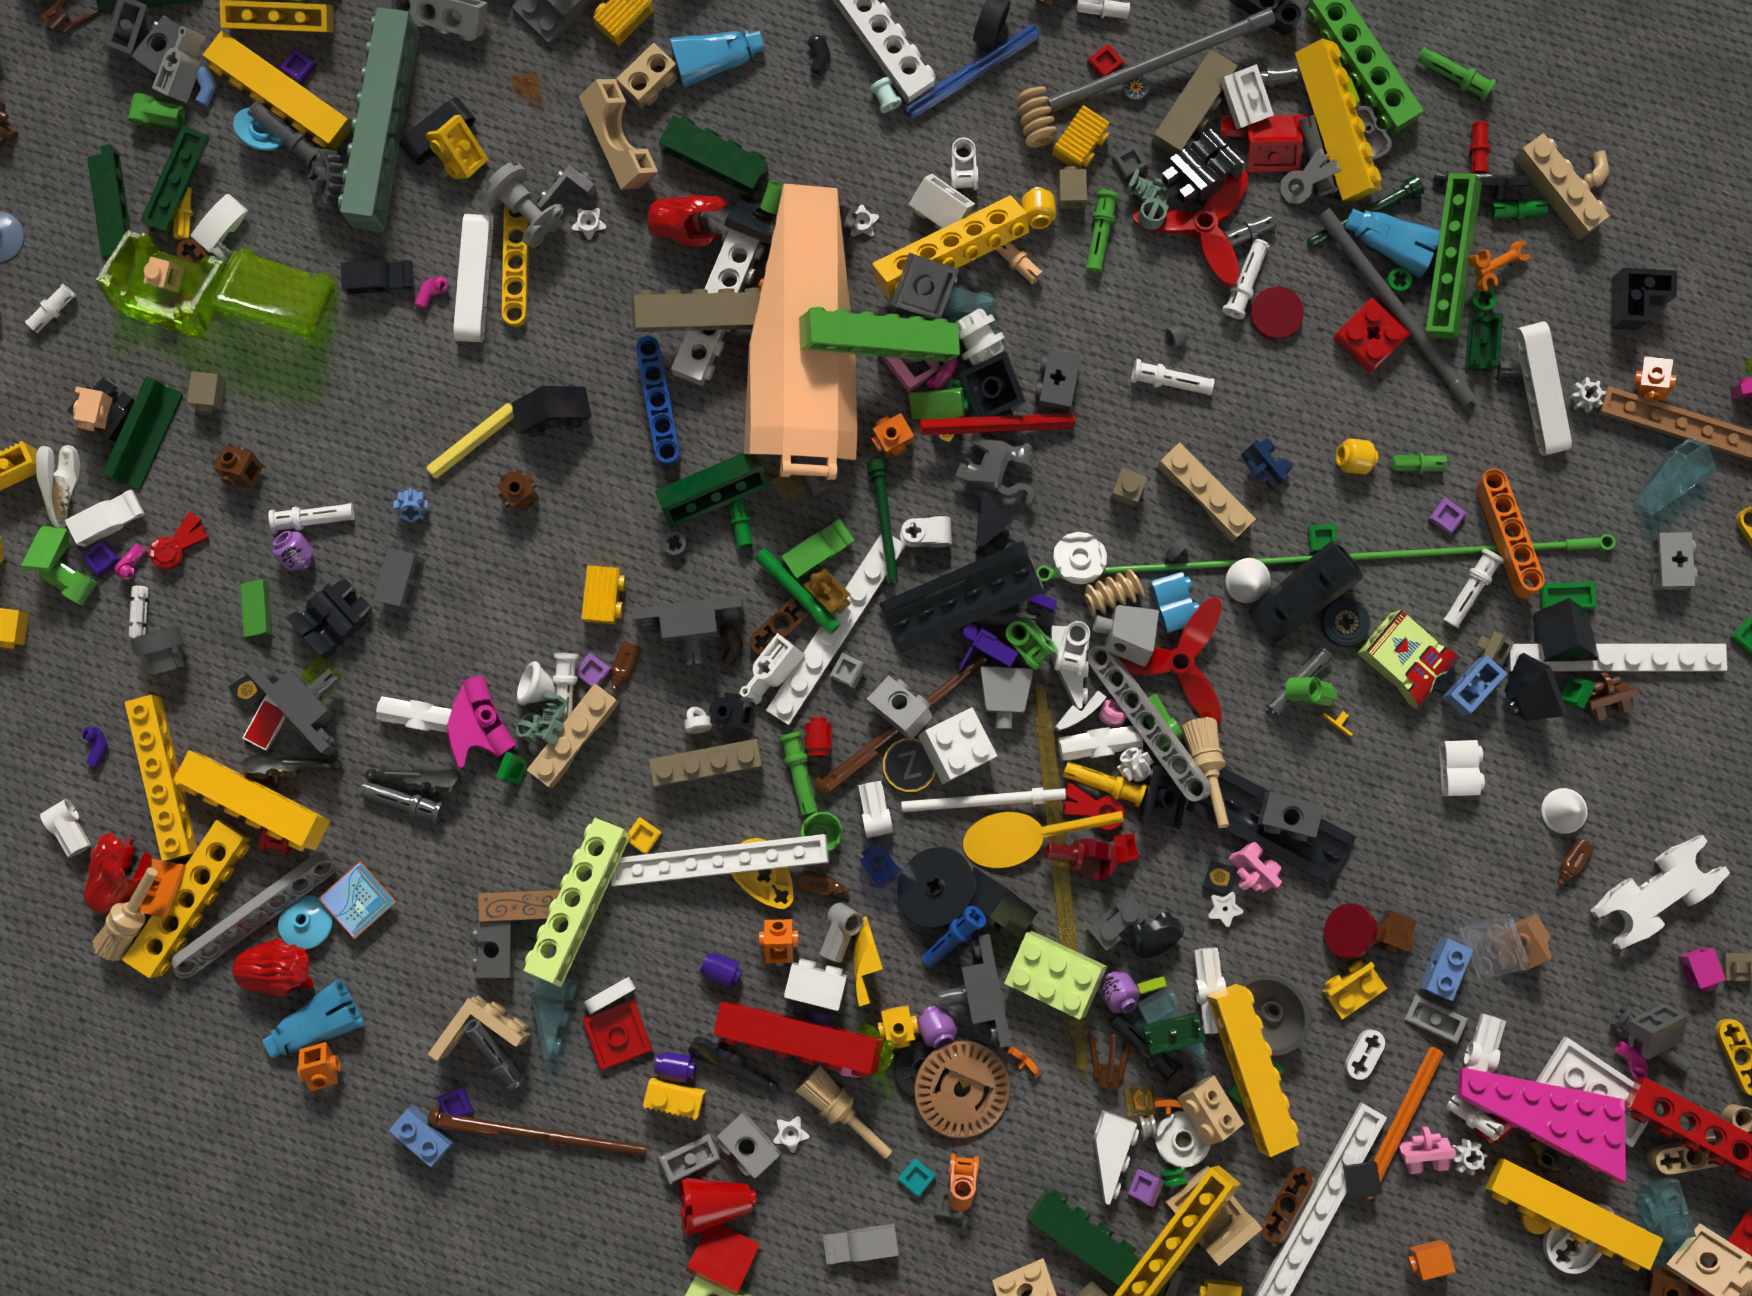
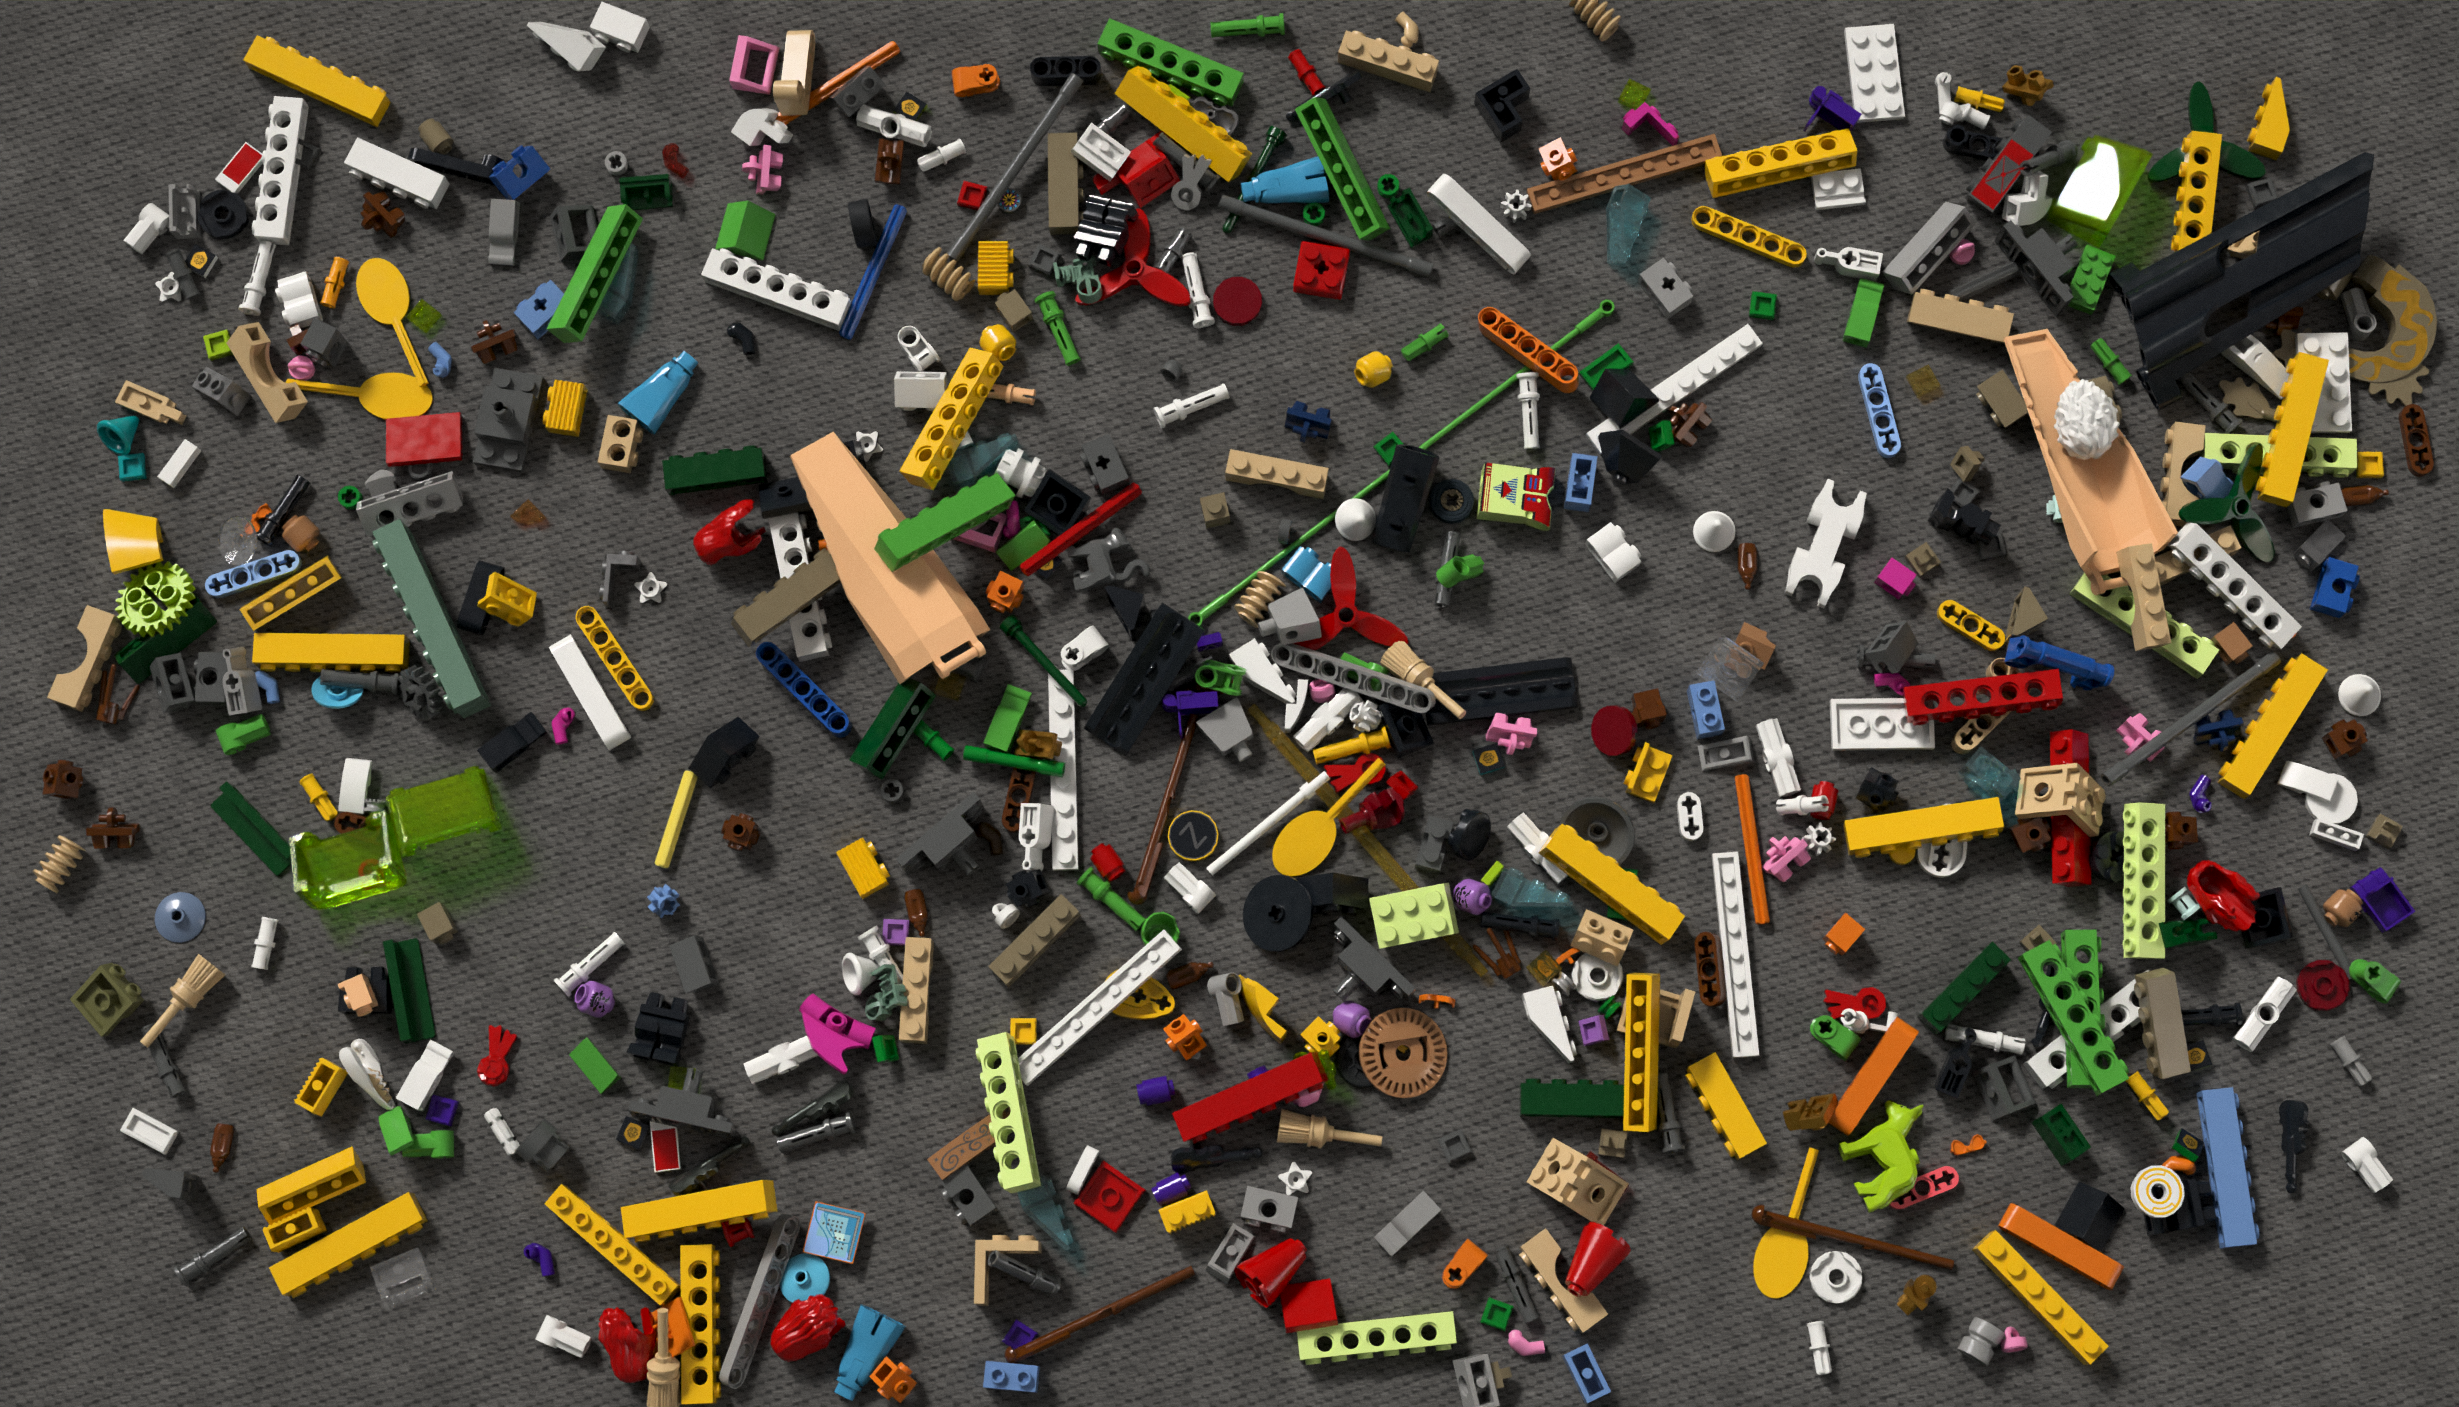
camera: 30 degrees left, 5 degrees down
(125, 566) = (467, 1102): dark pink arm -> none
(158, 271) = (342, 853): light nougat brick -> none
(174, 180) = (298, 774): dark green panel -> none
(237, 467) = (505, 963): reddish brown brick -> none
(297, 66) = (331, 621): dark purple tile -> none
(508, 189) = (581, 606): light grey piece -> none
(604, 109) = (602, 490): tan arch -> none
(772, 197) = (786, 472): bright green piece -> none
(815, 984) = (1236, 1049): white brick -> none
(848, 670) = (1095, 796): light grey tile -> none
(881, 875) = (1231, 922): clear blue brick -> none
(885, 94) = (818, 334): light aqua bush -> none
(907, 720) = (1167, 802): light grey brick -> none
(916, 1177) = (1415, 1144): teal tile -> none
(924, 286) = (952, 461): dark grey tile -> none
(957, 745) = (1219, 794): white brick -> none
(959, 931) = (1317, 932): blue pin -> none
(962, 1177) = (1450, 1118): orange piece -> none
(1073, 650) = (1259, 663): white piece -> none
(1079, 558) = (1214, 589): white tile -> none
(1172, 1033) = (1531, 897): dark green hinge -> none
(1218, 904) = (1502, 777): white plate -> none
(1307, 816) = (1519, 663): dark grey brick -> none
(1338, 723) = (1498, 582): yellow piece -> none
(1362, 1180) = (1750, 910): black piece -> none
(1447, 516) = (1473, 368): medium lavender tile -> none
(1486, 265) = (1370, 160): orange bar -> none
(1497, 647) = (1577, 442): dark tan tile -> none
(1518, 209) = (1368, 99): green pin -> none
(1561, 1117) = (1864, 760): dark pink wing -> none

